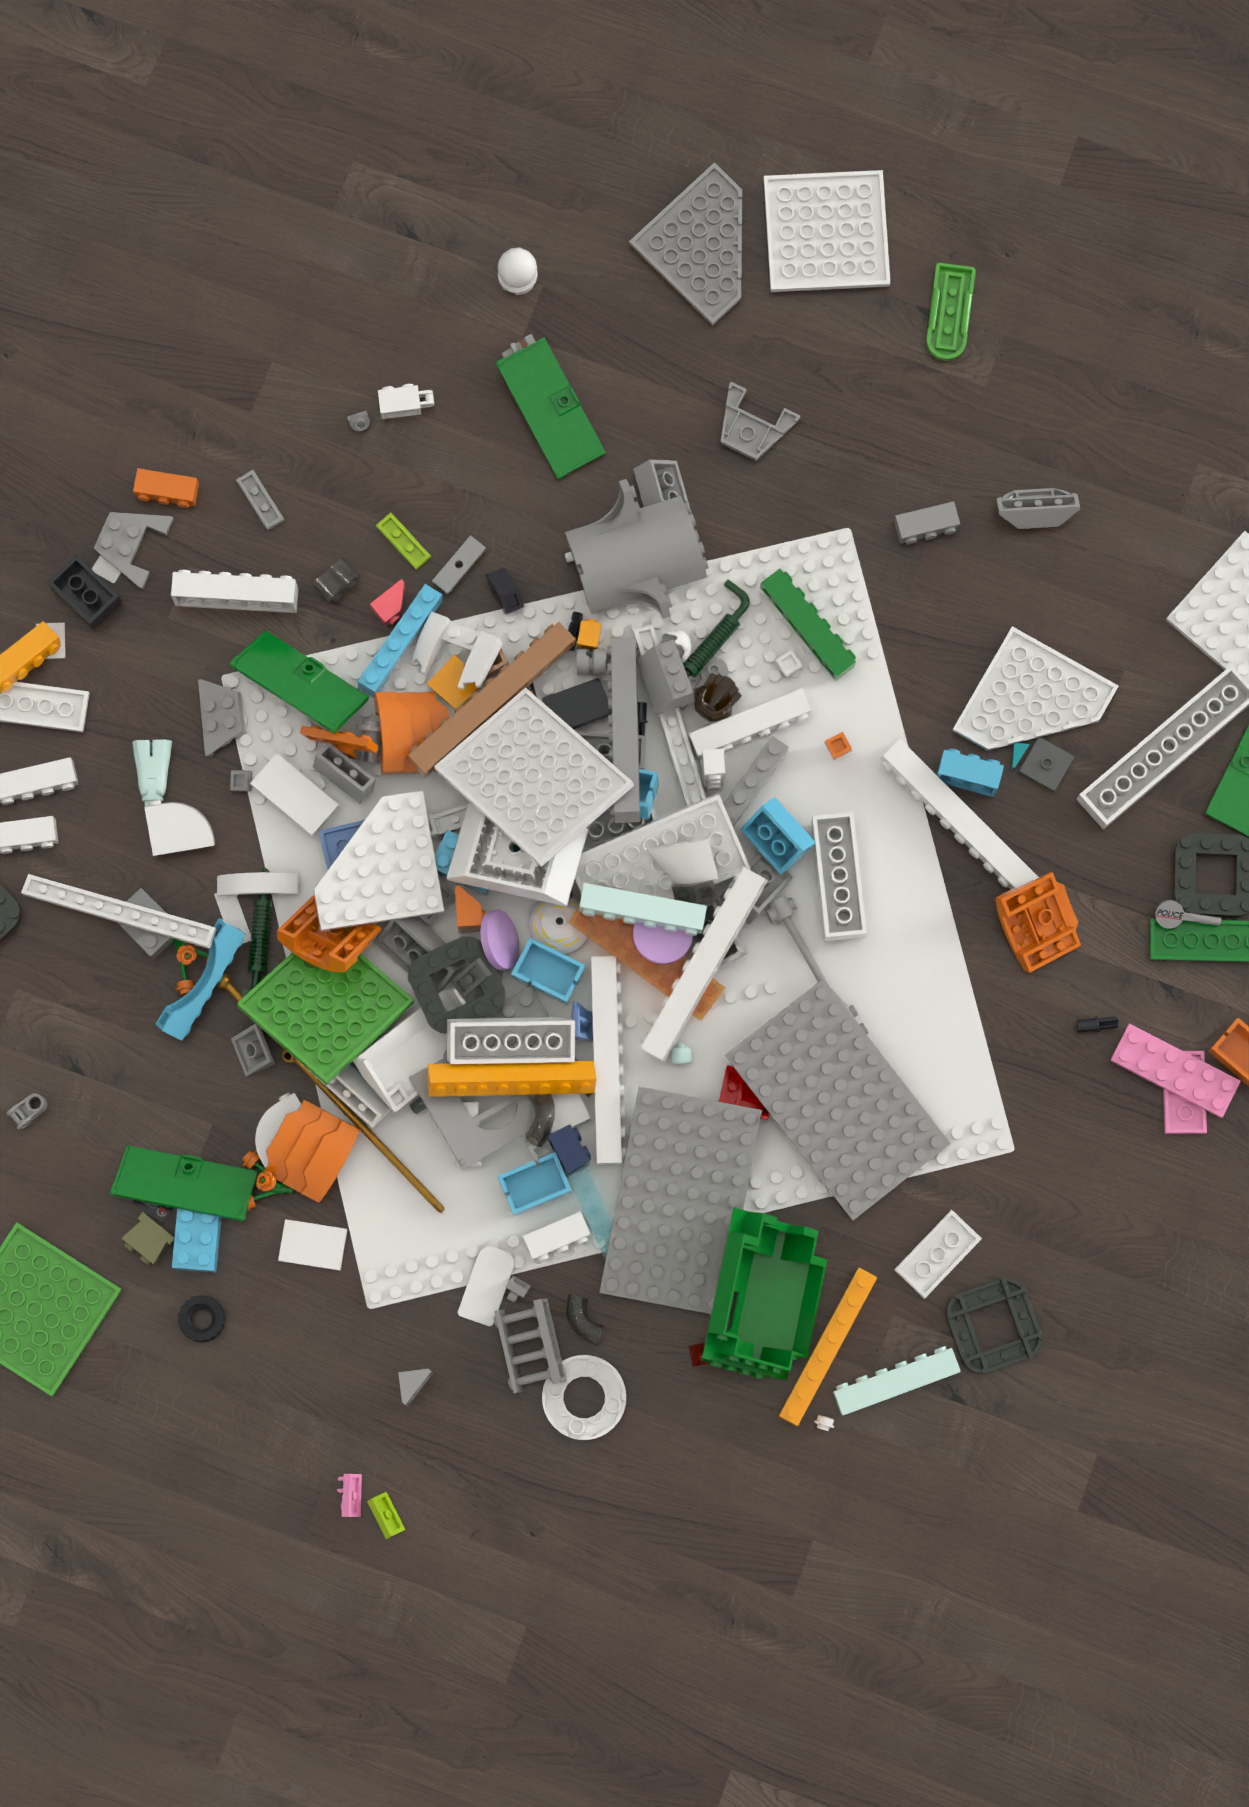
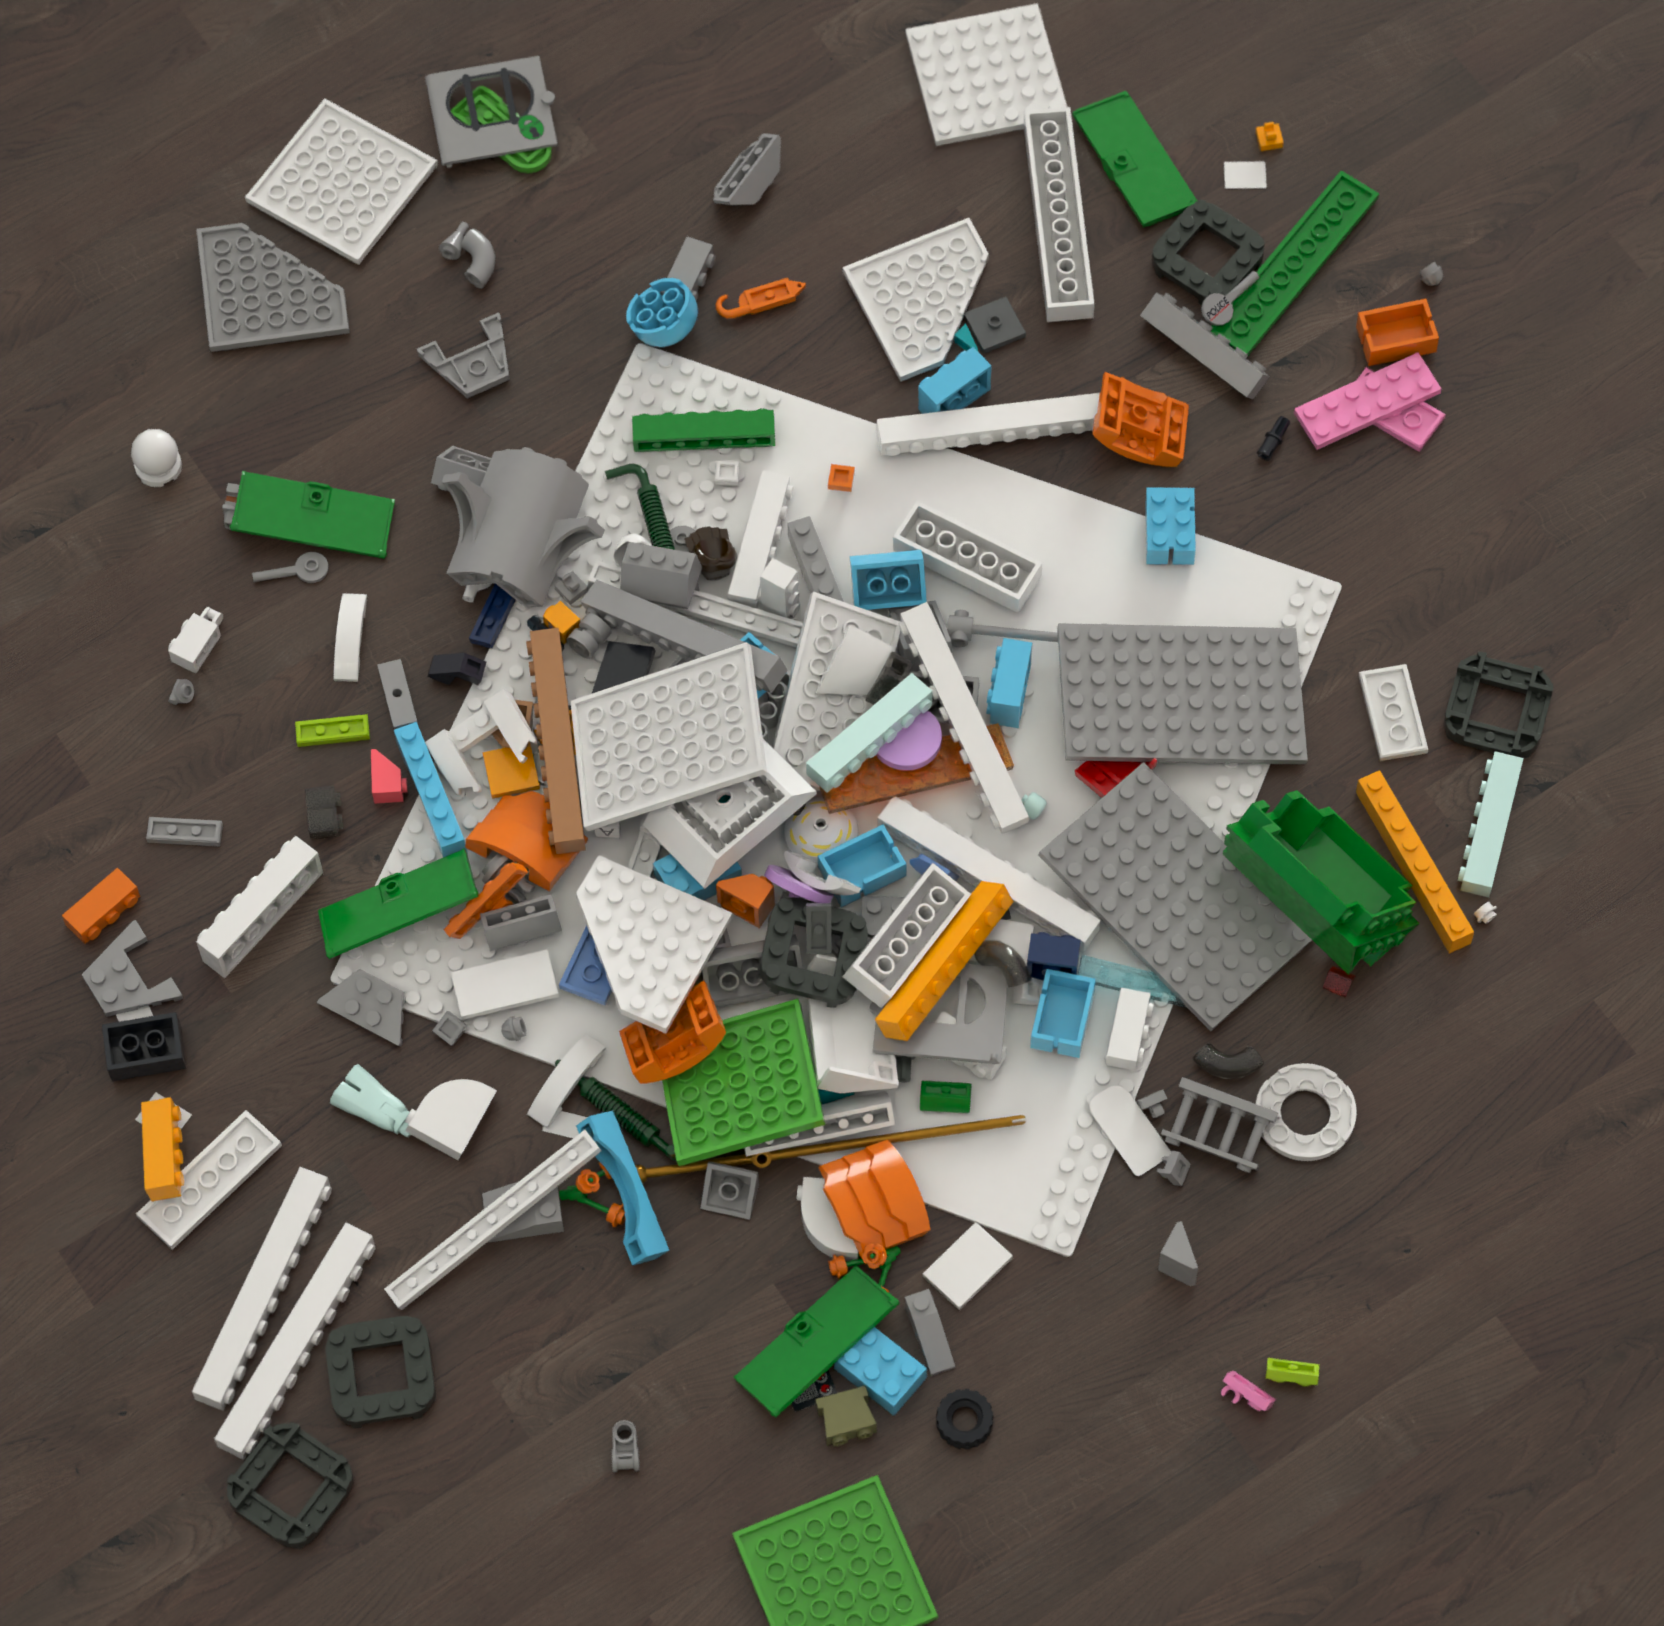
camera: 50 degrees left, 15 degrees down
(246, 1253) = (929, 1332): none -> light grey slope
(267, 824) = (514, 1028): none -> light grey plate
(422, 1145) = (945, 1096): none -> green slope
(479, 1337) = (1175, 1168): none -> light grey tile
(480, 499) = (349, 637): none -> white slope
(513, 435) = (309, 568): none -> light grey piece
(516, 933) = (804, 870): none -> white slope
(559, 586) = (492, 618): none -> dark blue plate
(622, 622) = (571, 587): none -> light grey tile
(759, 974) = (1009, 682): none -> medium azure brick
(833, 344) = (452, 245): none -> light grey cone
(836, 372) = (482, 256): none -> light grey cylinder
(875, 530) = (664, 318): none -> medium azure cylinder
(926, 302) = (518, 134): none -> light grey door
(946, 587) = (762, 298): none -> orange plate
(967, 1000) = (1170, 525): none -> medium azure piece
(1134, 925) = (1205, 345): none -> light grey brick

